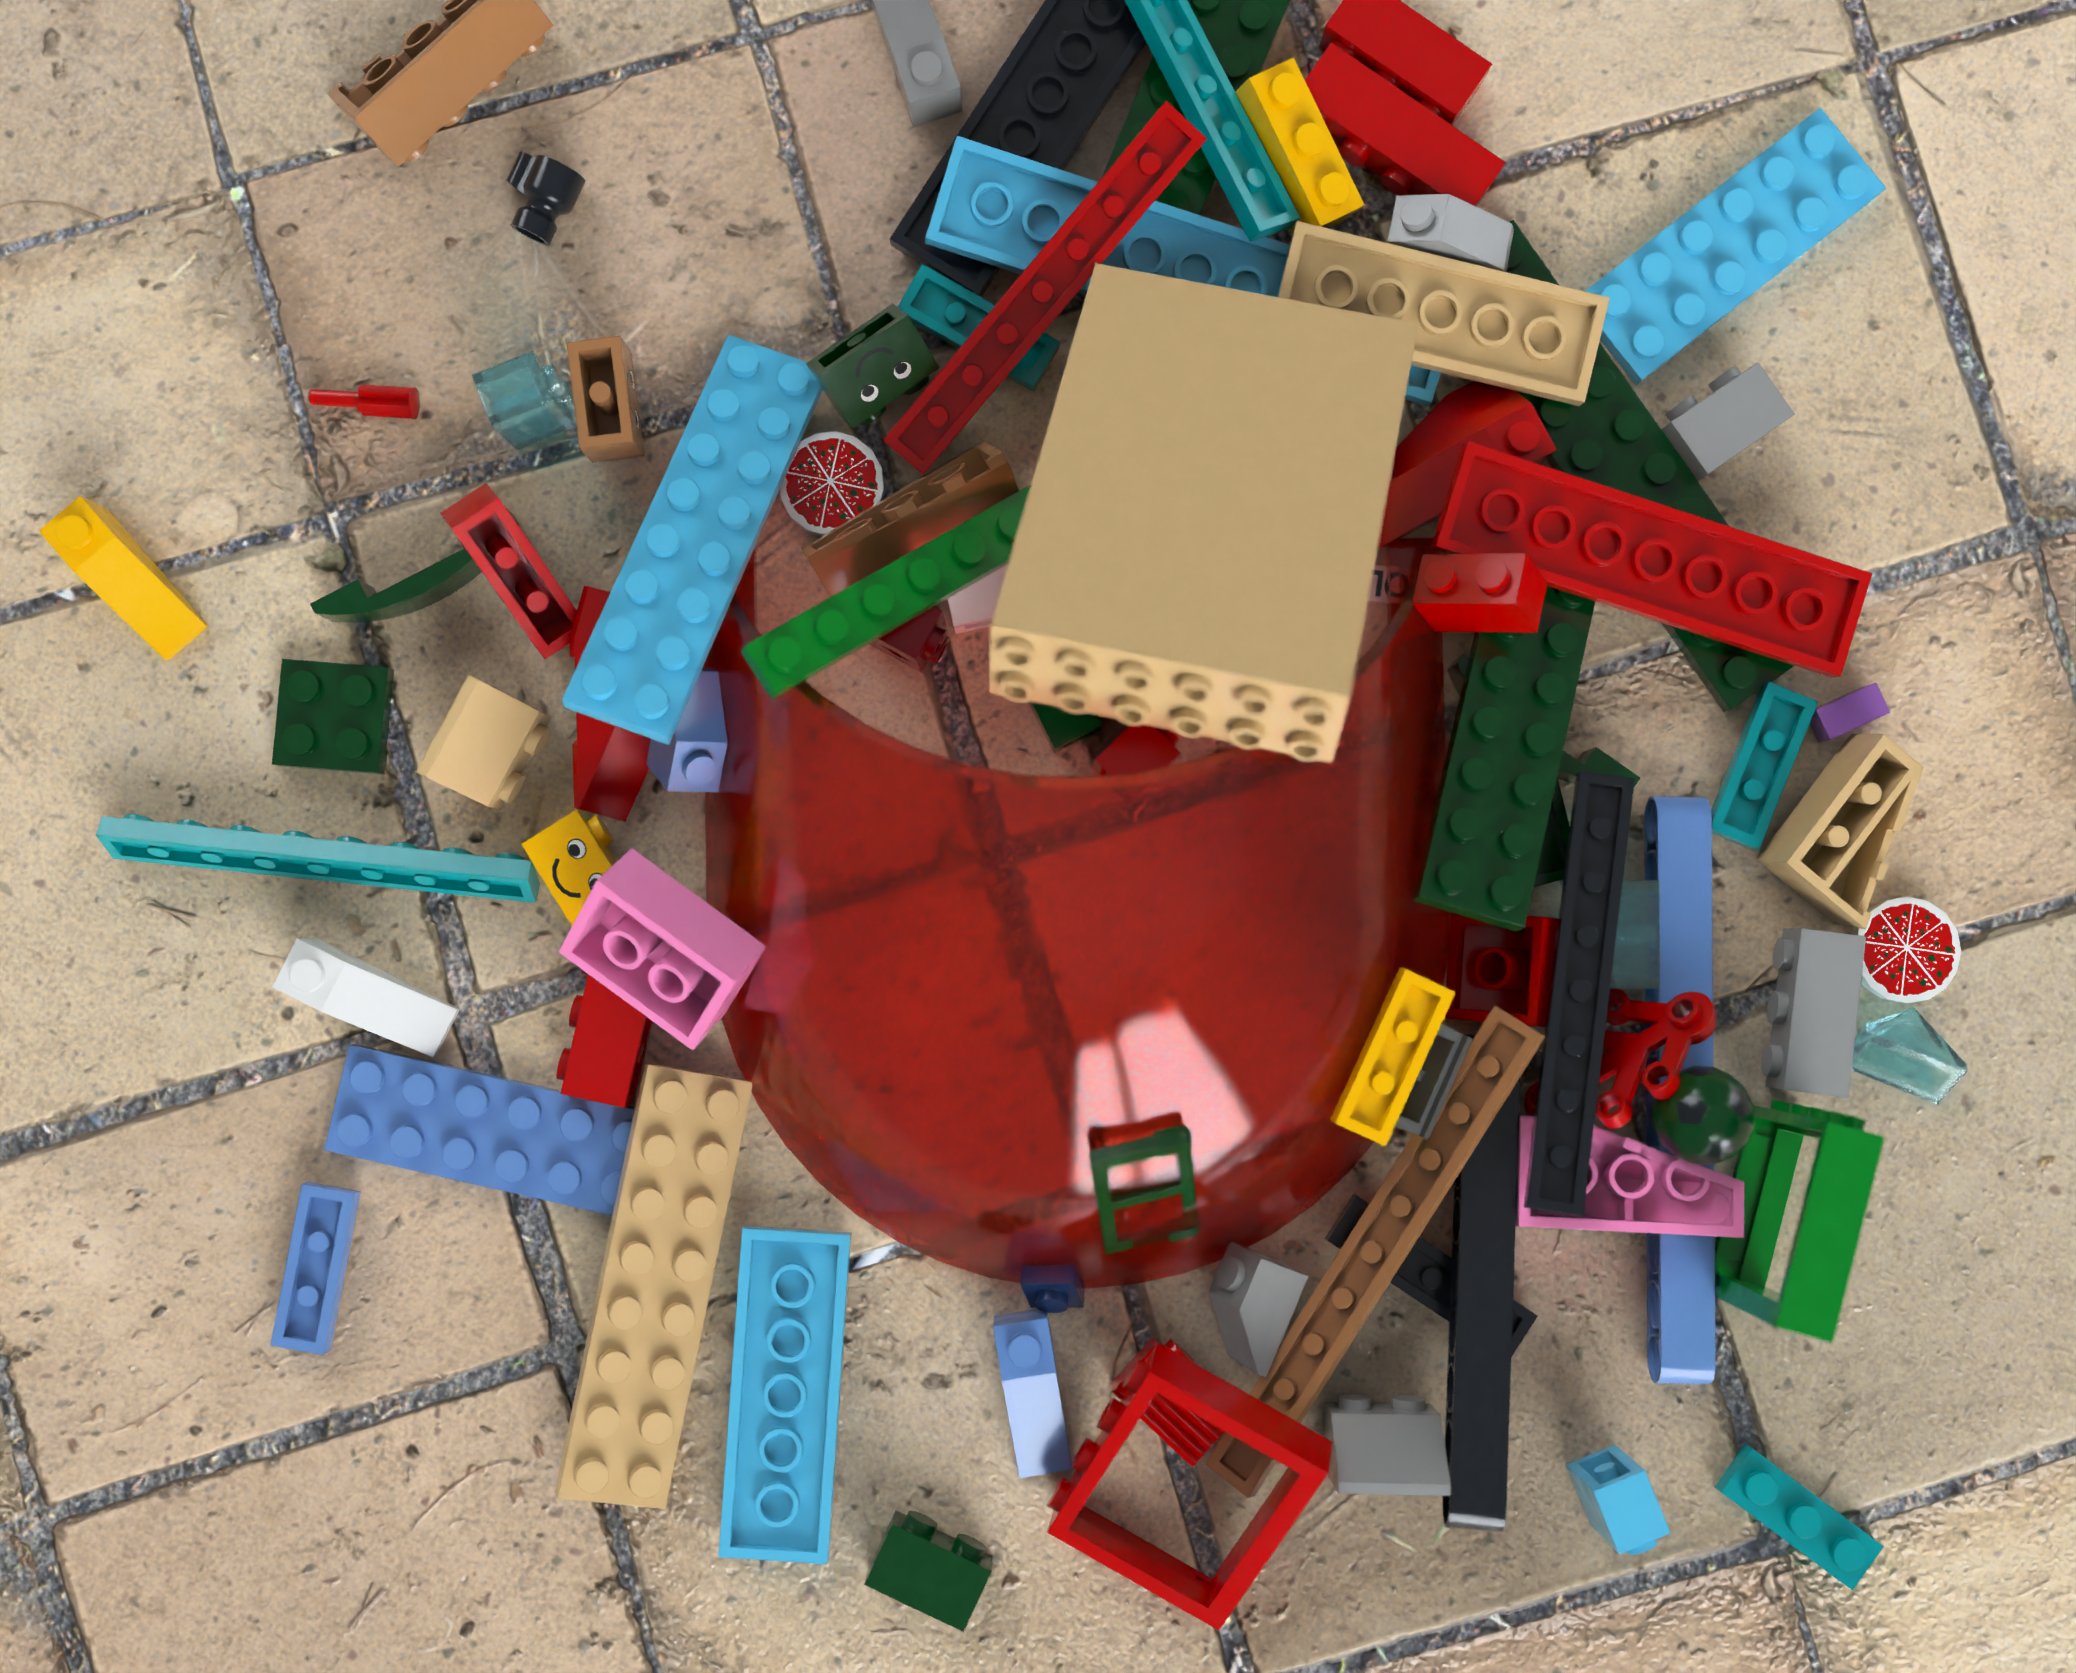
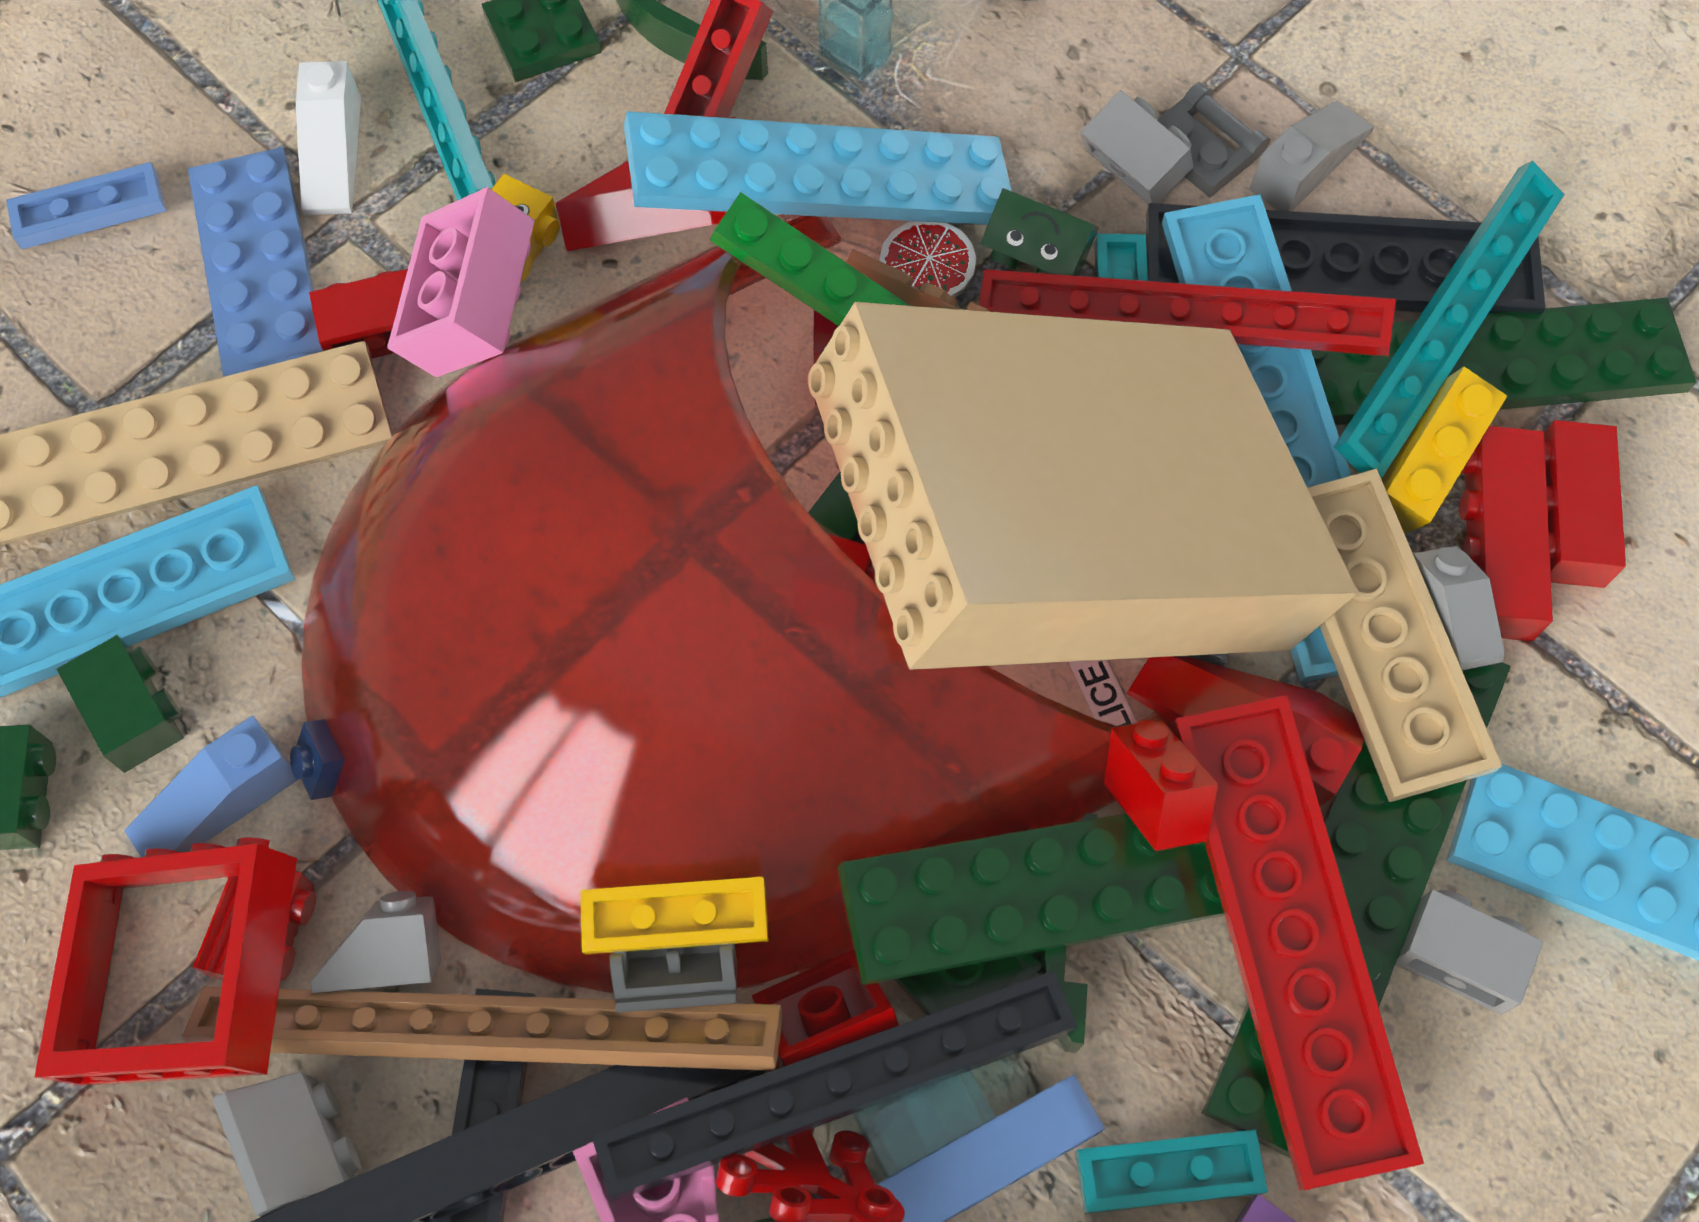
camera: 65 degrees right, 20 degrees down
(485, 744) = (571, 113): tan slope -> none
(605, 399) = (891, 73): medium nougat brick -> none
(699, 743) = (659, 243): medium blue slope -> none
(823, 210) = (1138, 147): none -> light grey brick
(843, 151) = (1213, 159): none -> dark grey plate
(901, 1435) = (122, 703): none -> dark green brick
(1162, 1143) = (473, 718): dark green window -> none

